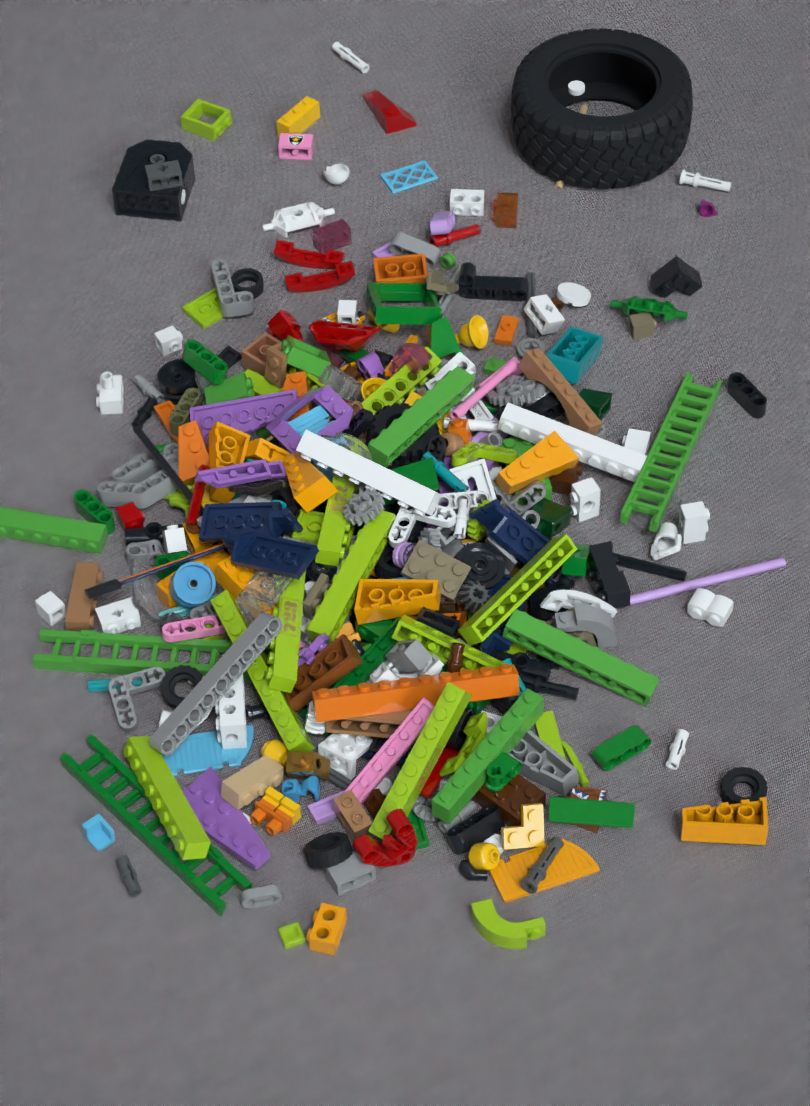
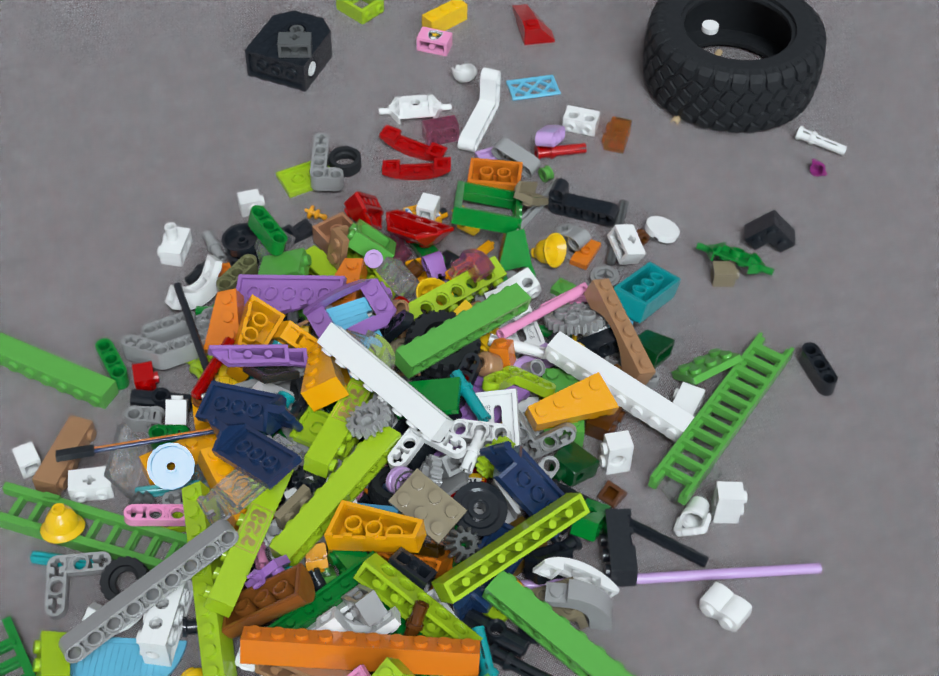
camera: 10 degrees right, 0 degrees up
(108, 652) = (61, 524): none -> yellow hat
(155, 428) = (200, 291): none -> white arch
(236, 339) = (311, 212): none -> light orange hair
(314, 370) = (373, 259): none -> lavender tile
(368, 209) = (483, 112): none -> white beam
(493, 315) = (574, 236): none -> light grey piece
(588, 536) = (612, 494): none -> reddish brown slope
(646, 411) = (706, 366): none -> bright green plate

